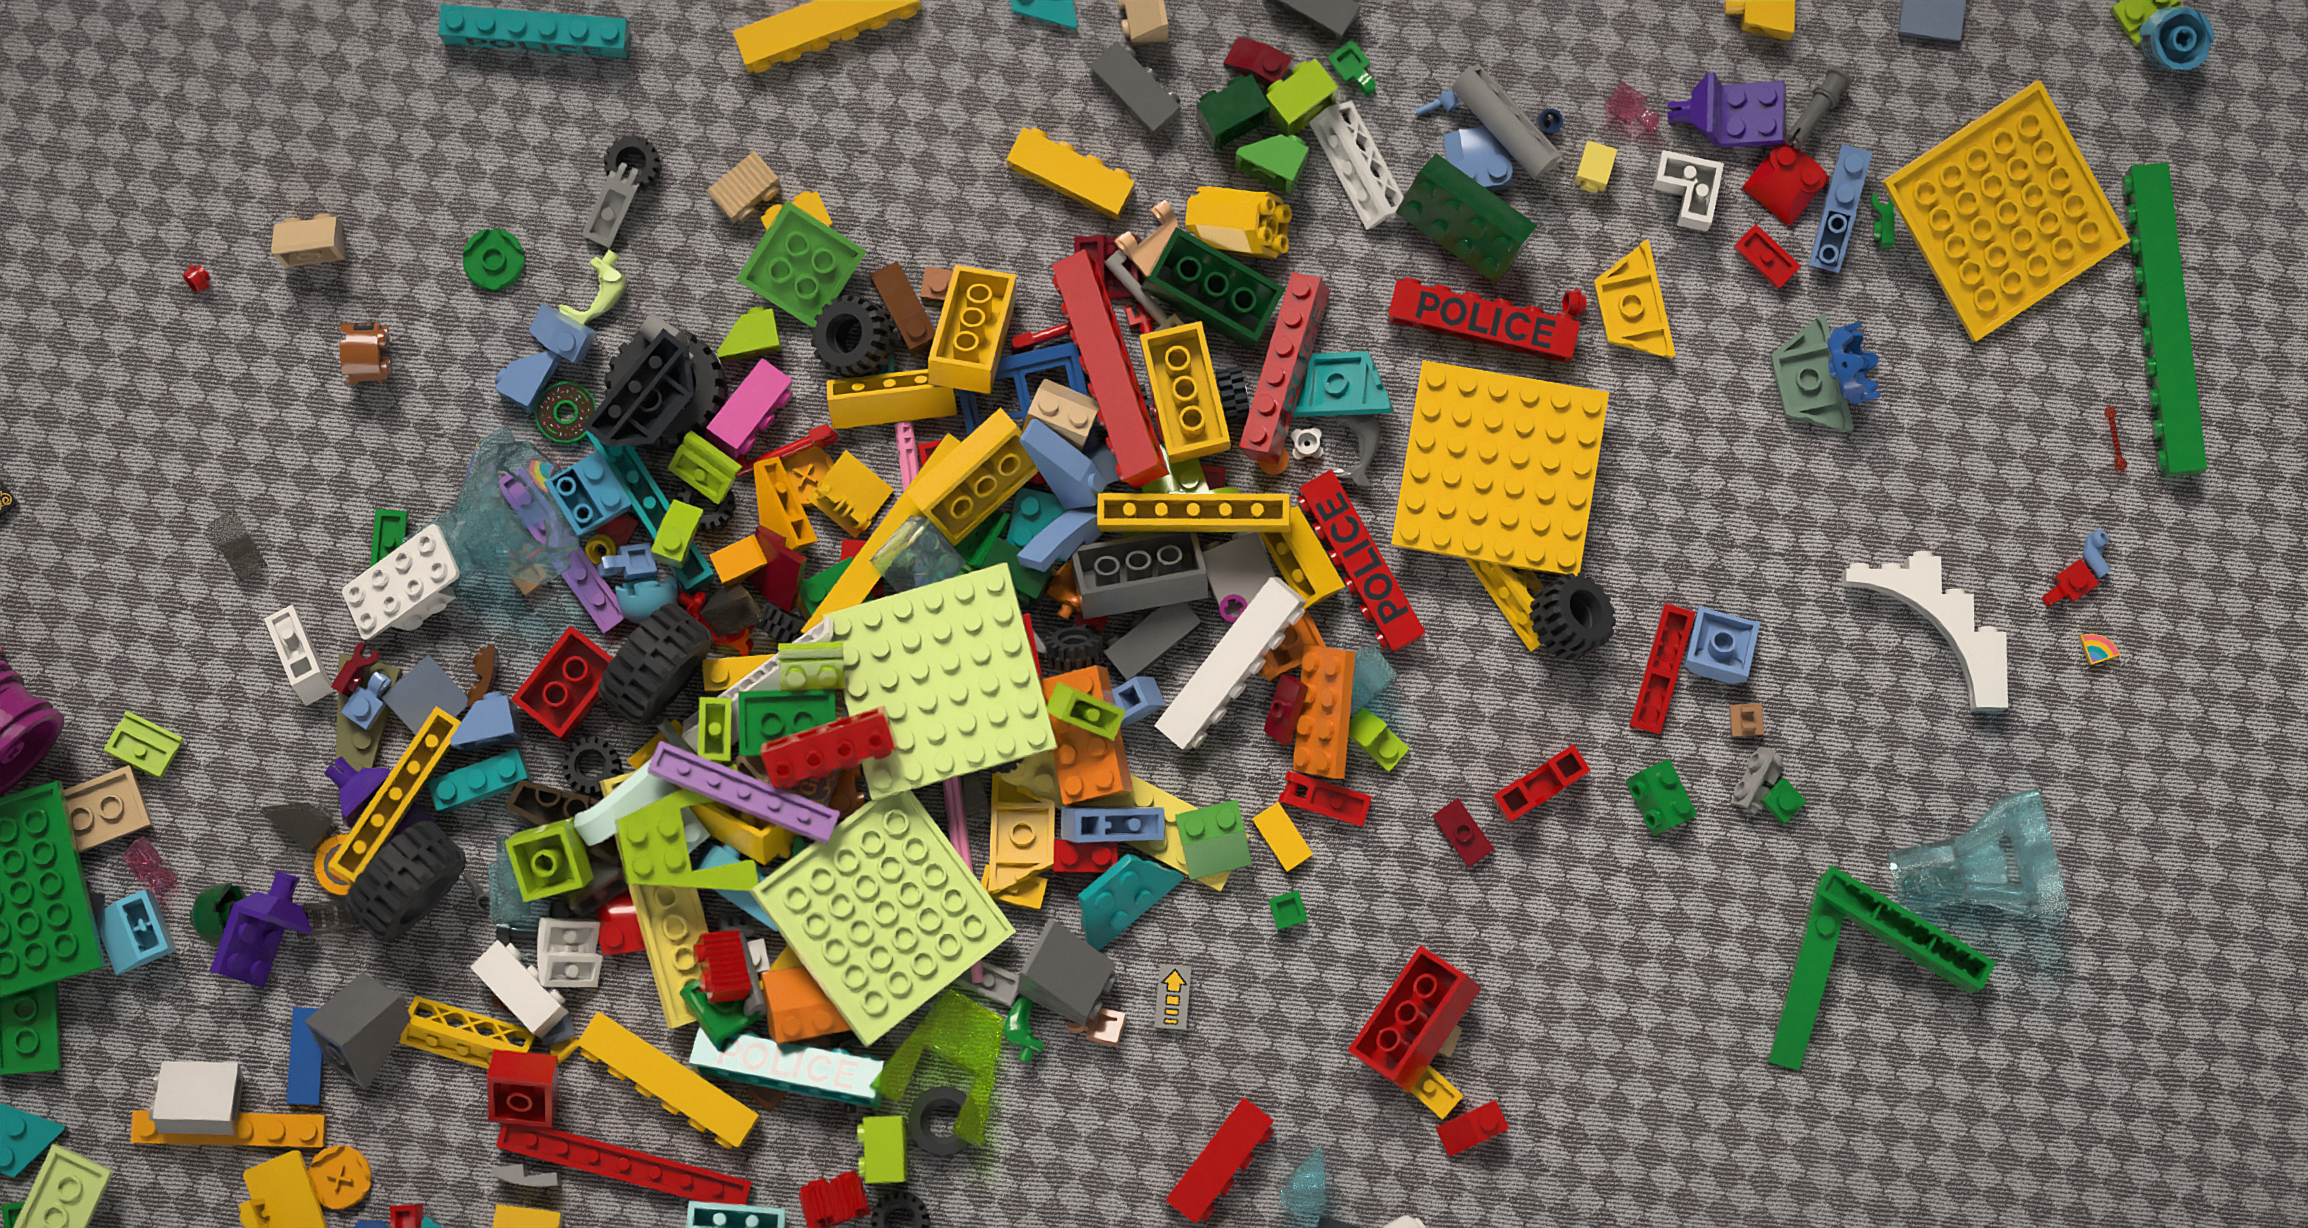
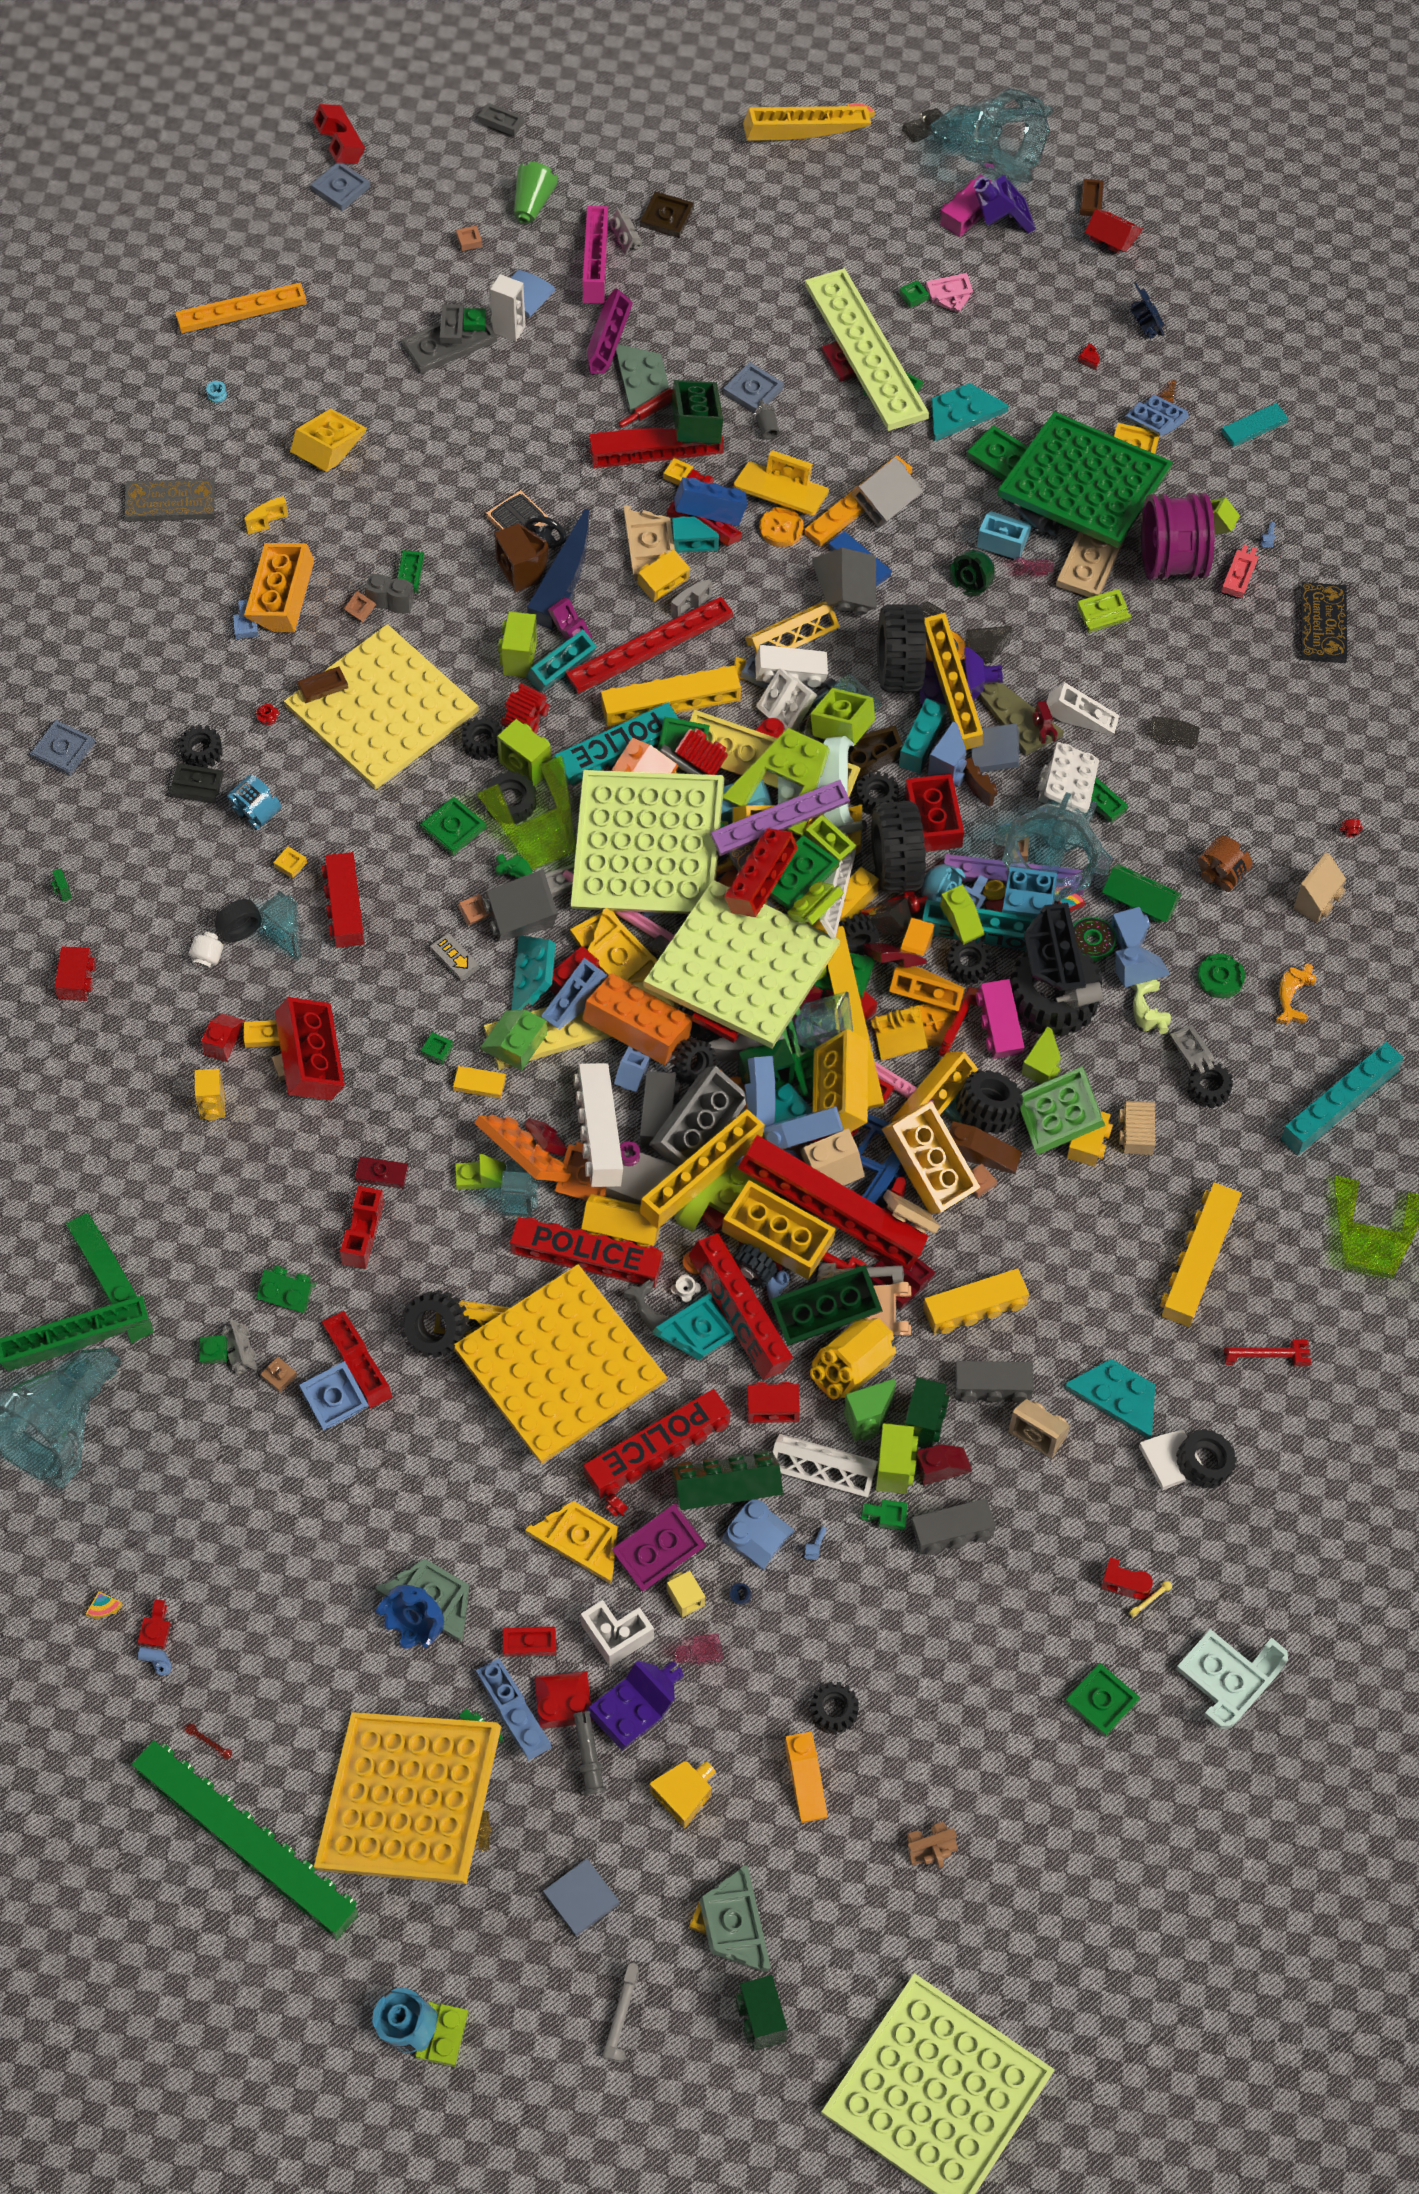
camera: 130 degrees right, 20 degrees down
(257, 930) = (946, 576): dark purple plate -> none
(365, 704) = (1021, 714): medium blue plate -> none
(445, 186) = (1289, 983): none -> light orange animal
(470, 399) = (1141, 892): none -> green brick
(522, 1088) = (737, 624): red brick -> none
(704, 467) = (987, 963): lime plate -> none
(1030, 1145) = (453, 826): none -> green plate
(1043, 300) = (904, 1210): none -> tan tile
(1085, 710) = (648, 1011): lime slope -> none
(1235, 359) = (777, 1285): none -> medium blue arm
(1326, 799) = (462, 1124): red plate -> none
(1345, 258) = (773, 1403): none -> red brick
(1506, 121) = (763, 1564): light grey brick -> none
(1552, 1062) = (210, 1094): none -> yellow brick
(1582, 220) = (659, 1547): none -> magenta plate
(1920, 586) = (247, 1536): white arch -> none

